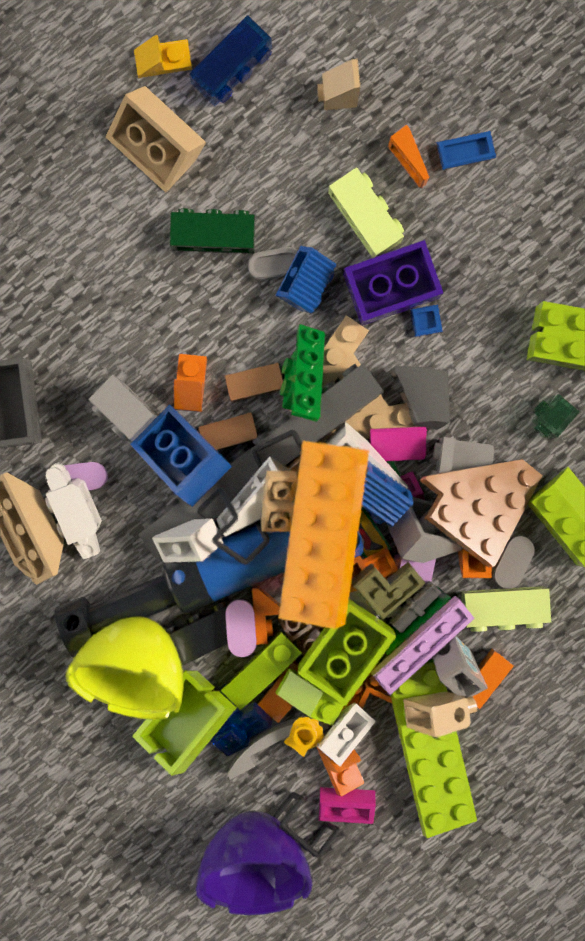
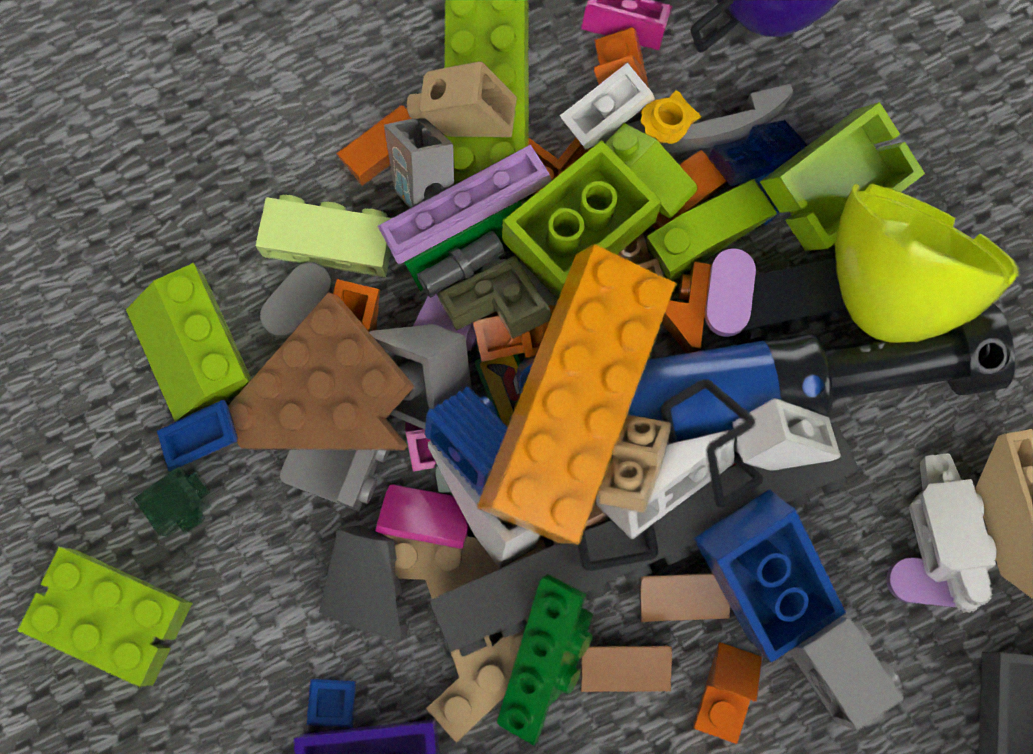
camera: 170 degrees left, 10 degrees down
(551, 460) = (197, 435): none -> blue tile

